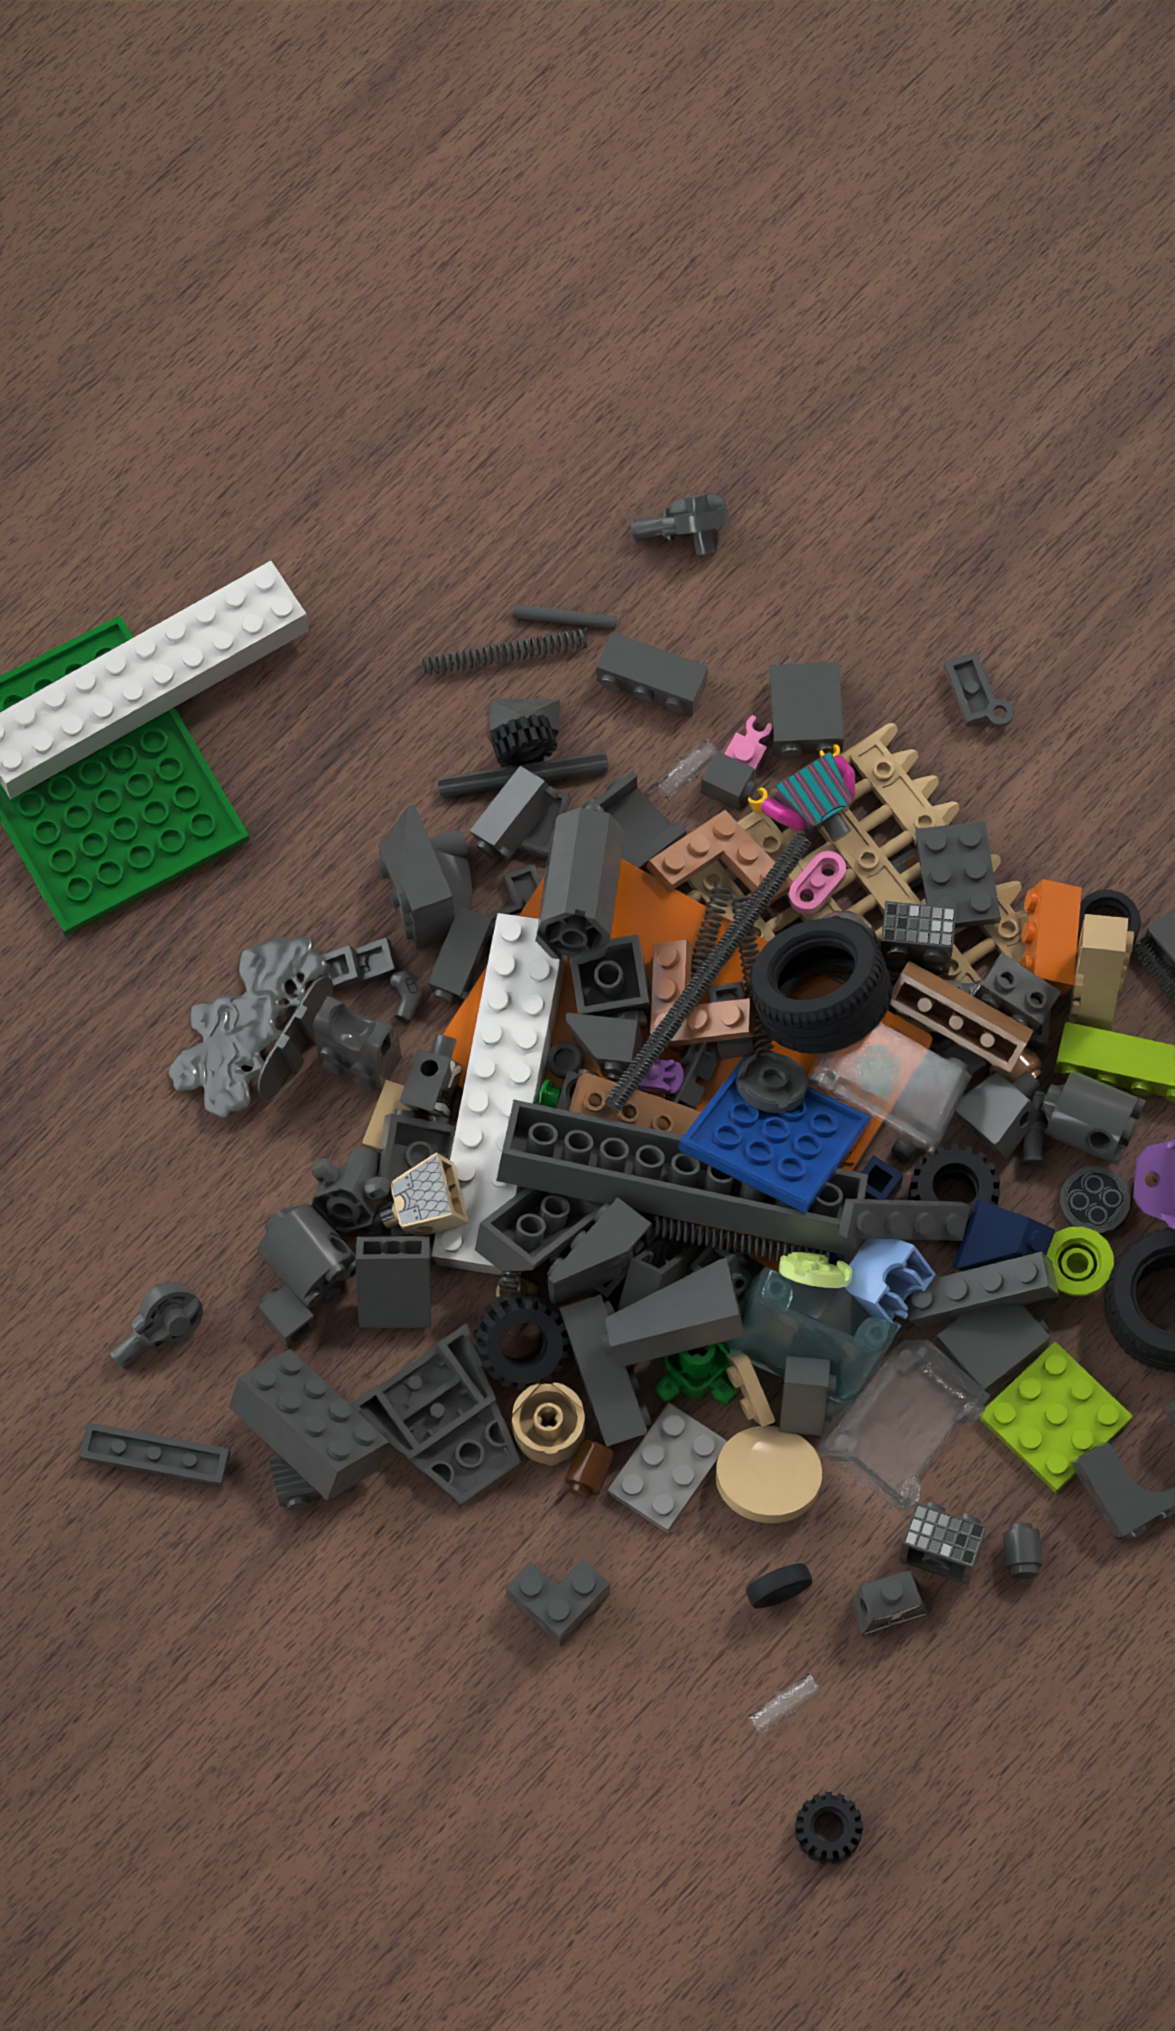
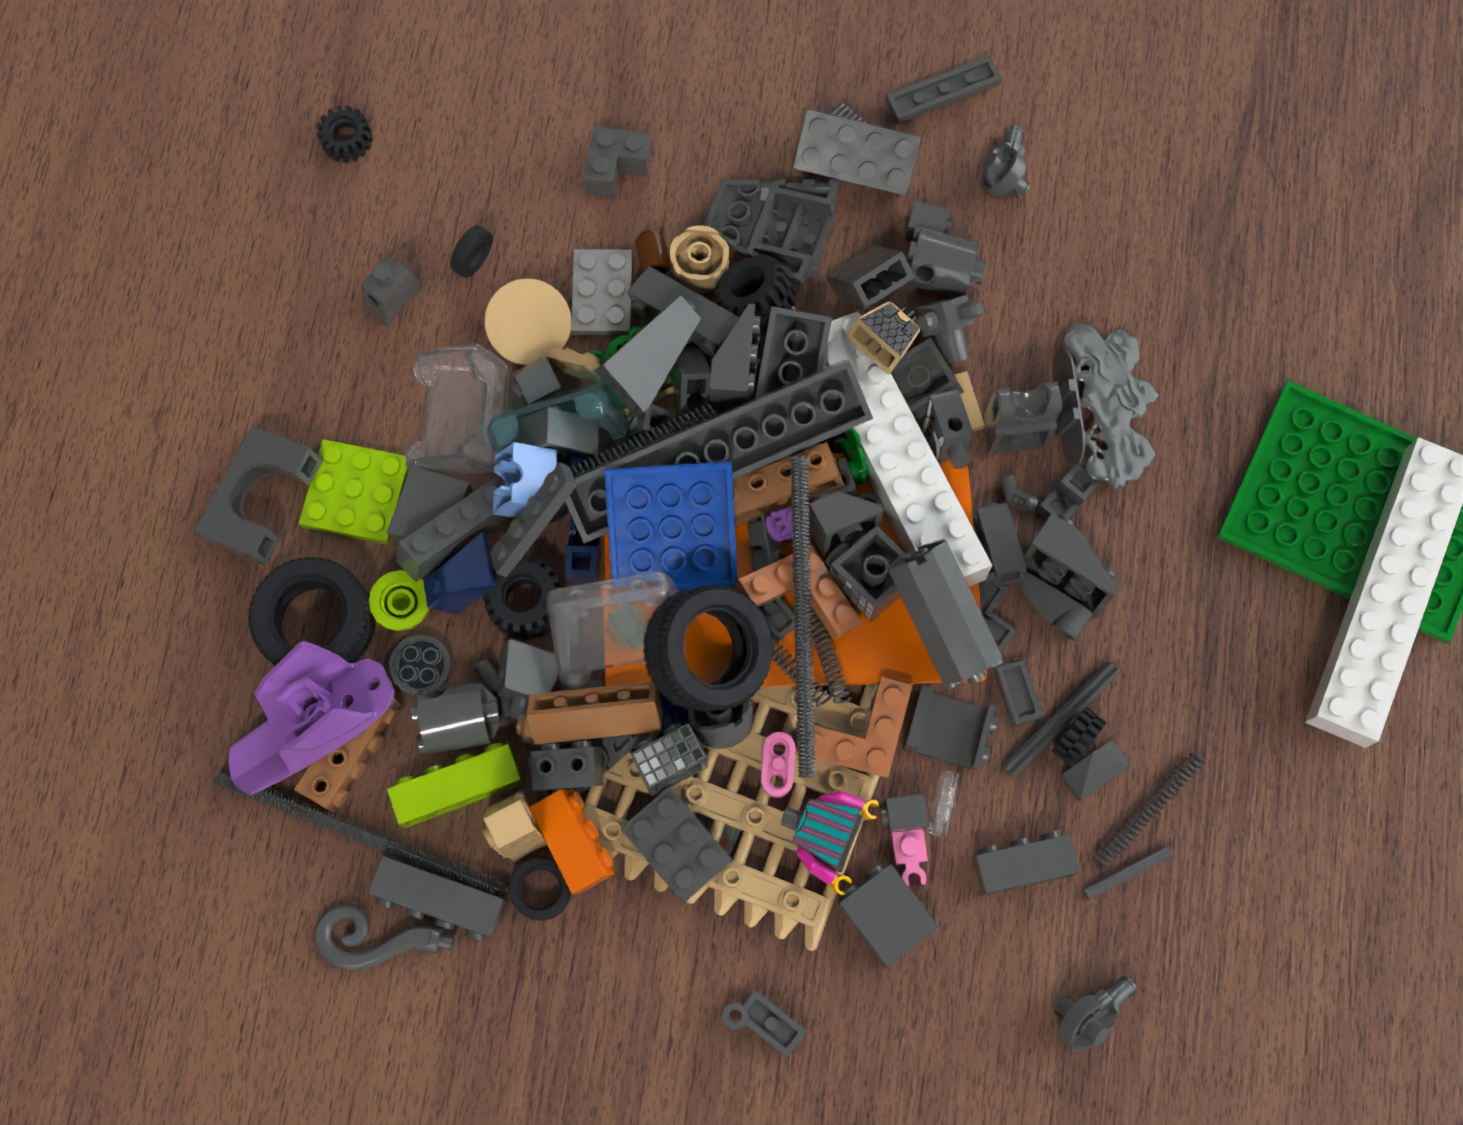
camera: 145 degrees right, 5 degrees up
(513, 814) = (1043, 674): brick -> none
(772, 1082) = (699, 564): dark grey tile -> none
(784, 1703) = (423, 190): clear pin -> none
(815, 1270) = (572, 439): yellowish green tile -> none
(942, 1542) = (375, 343): brick -> none
(1023, 1551) = (321, 382): dark grey brick -> none

